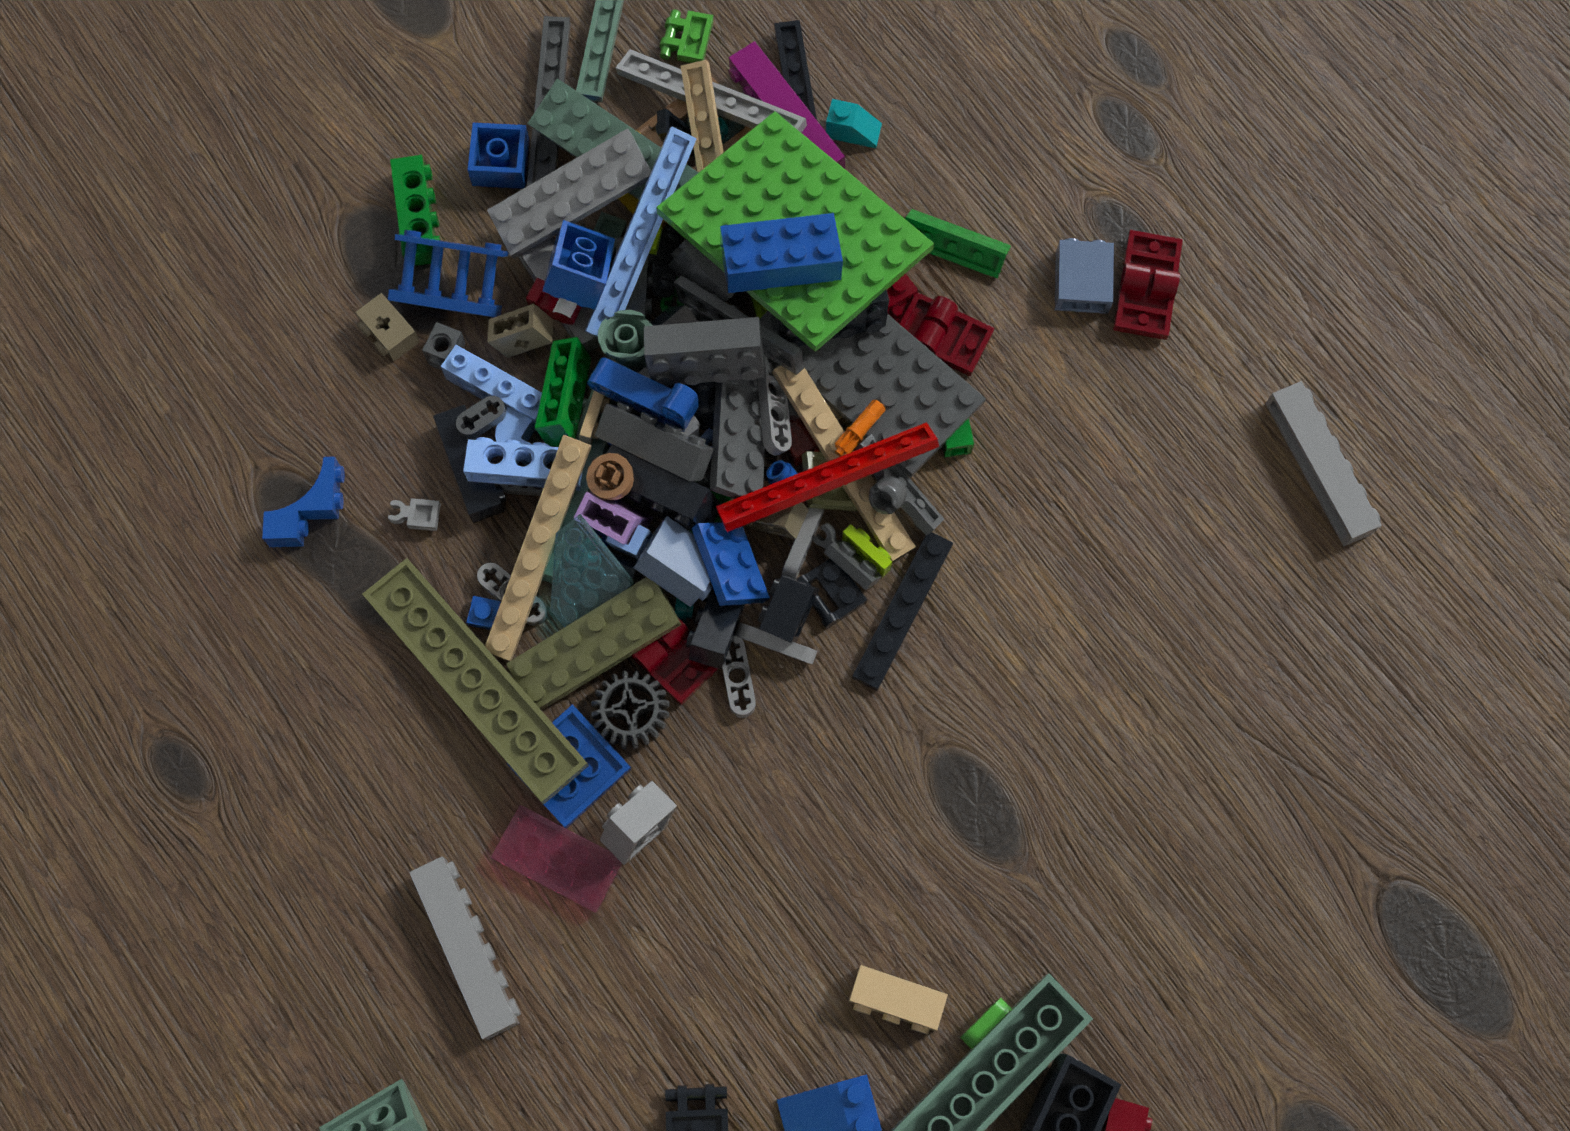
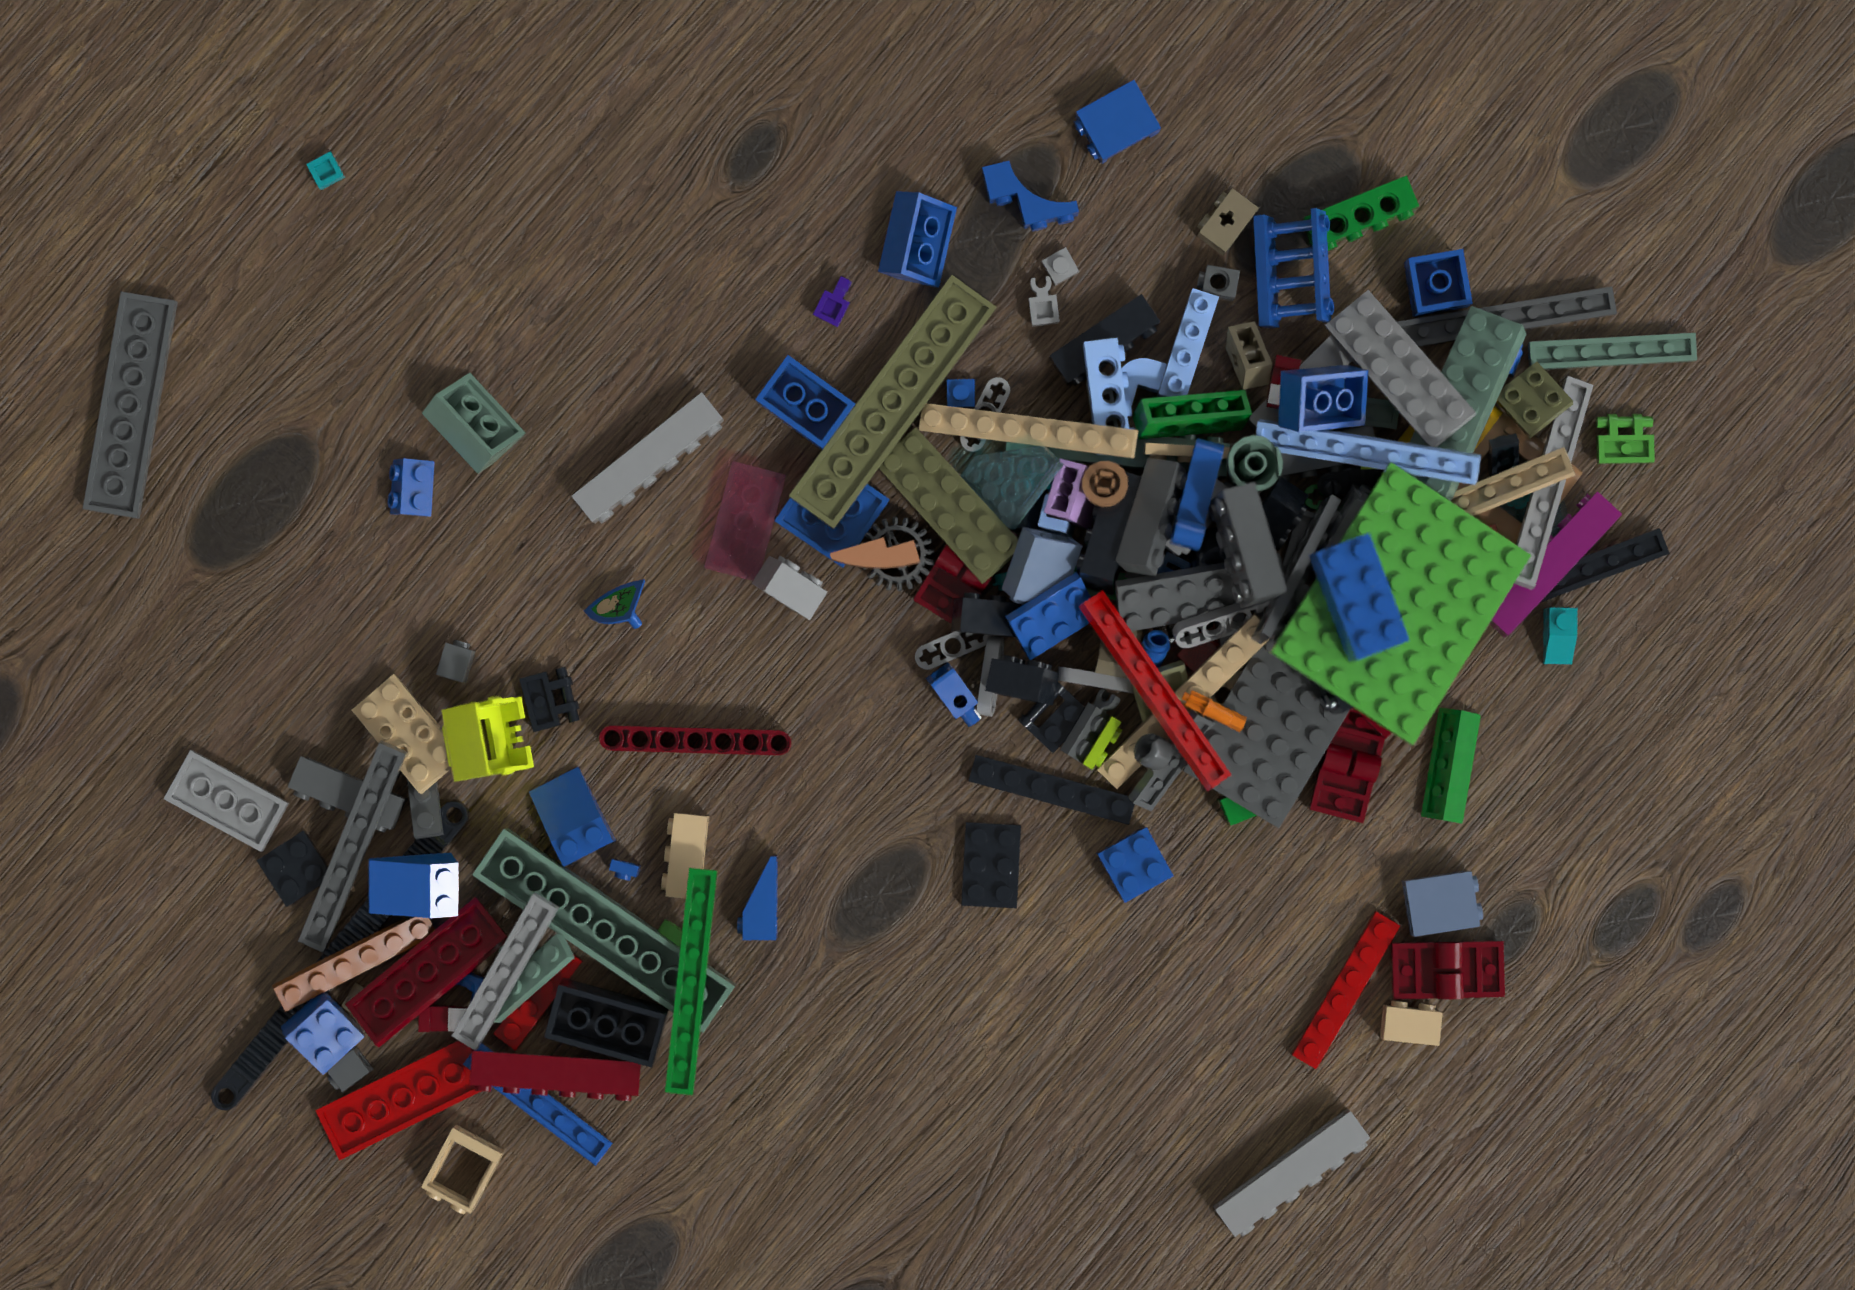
camera: 85 degrees right, 15 degrees up
(259, 406) = (1116, 122): none -> blue panel
(315, 620) = (917, 238): none -> blue slope
(359, 719) = (832, 305): none -> dark purple plate
(384, 490) = (1060, 266): none -> light grey plate
(450, 766) = (805, 402): none -> blue brick
(480, 417) = (1153, 336): dark grey beam -> none
(612, 1015) = (617, 605): none -> shield
(627, 722) = (877, 555): none -> nougat slope
(630, 94) = (1533, 399): none -> olive plate
(776, 946) = (682, 740): none -> dark red beam
(785, 681) = (949, 685): none -> blue torso
(898, 1071) = (624, 869): none -> blue plate
(967, 686) = (991, 865): none -> black plate
(969, 930) = (760, 913): none -> blue slope
(994, 544) = (1135, 864): none -> blue brick
(1037, 1018) = (691, 981): none -> green plate
(1152, 380) = (1345, 990): none -> red plate
(1195, 326) = (1411, 1024): none -> tan brick

